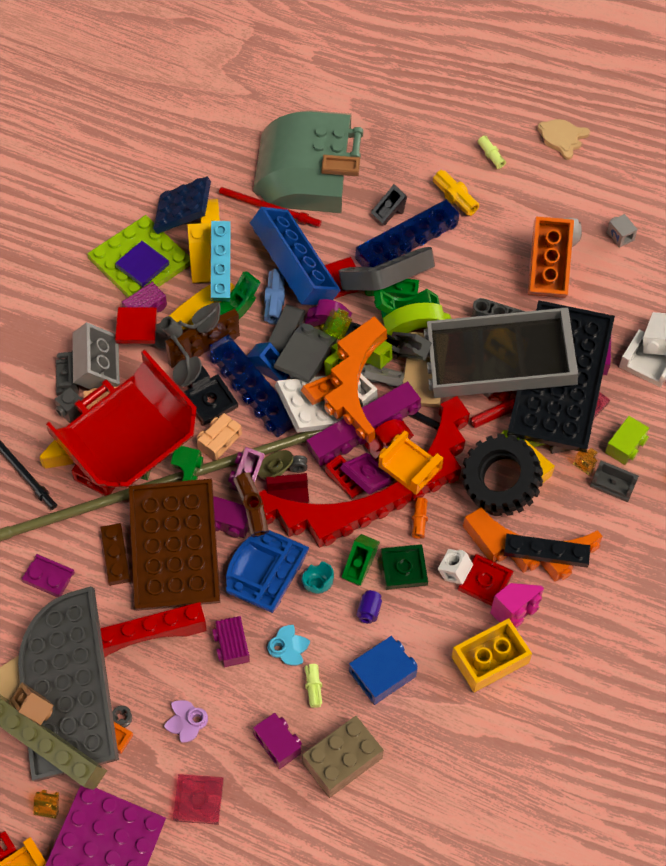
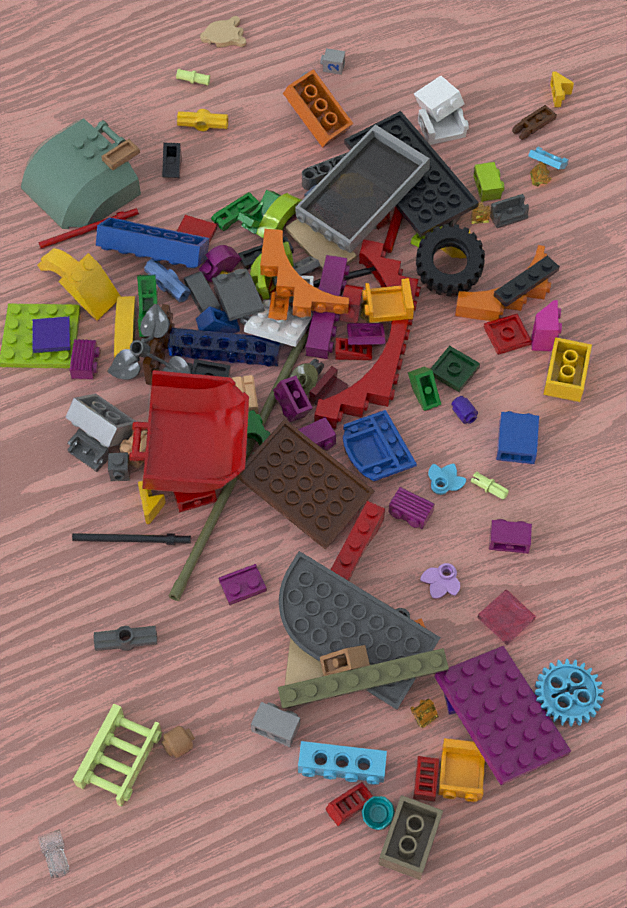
camera: 45 degrees left, 0 degrees up
(115, 554) = (268, 529): reddish brown plate -> none
(136, 325) = (102, 374): red tile -> none
(182, 204) = (32, 272): dark blue plate -> none
(220, 260) = (116, 281): medium azure brick -> none
(248, 492) = (337, 418): reddish brown piece -> none
(318, 578) = (415, 421): teal hair -> none
(337, 323) = (238, 257): clear neon green brick -> none
(342, 756) = (558, 507): dark tan brick -> none
(387, 273) = (231, 205): dark grey beam -> none
(408, 235) = (206, 172): clear blue brick -> none
(411, 346) = (302, 231): dark grey hinge -> none
(419, 518) = (427, 332): orange axle -> none
(455, 566) = (489, 344): white brick -> none

